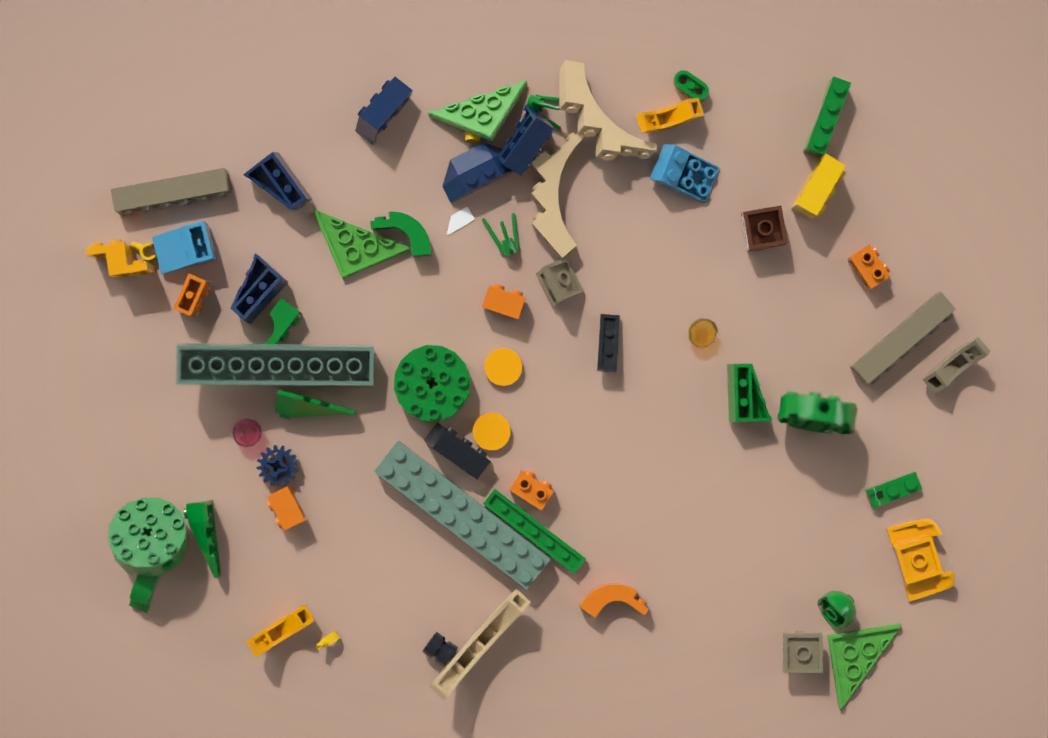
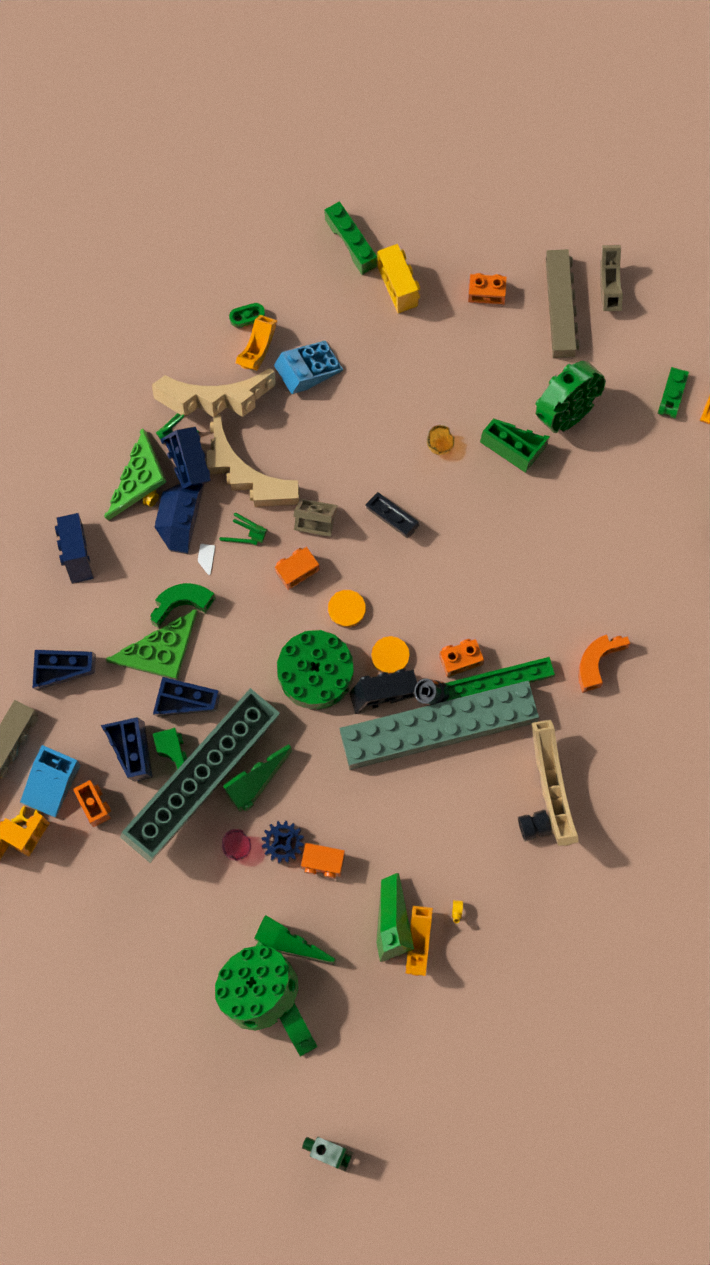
camera: 50 degrees left, 15 degrees down
(77, 689) = (334, 1155): none -> torso
(278, 600) = (393, 924): none -> green wedge
(329, 299) = (184, 698): none -> dark blue wedge
(482, 490) = (431, 691): none -> black wheel
(764, 228) = (397, 339): copper brick -> none

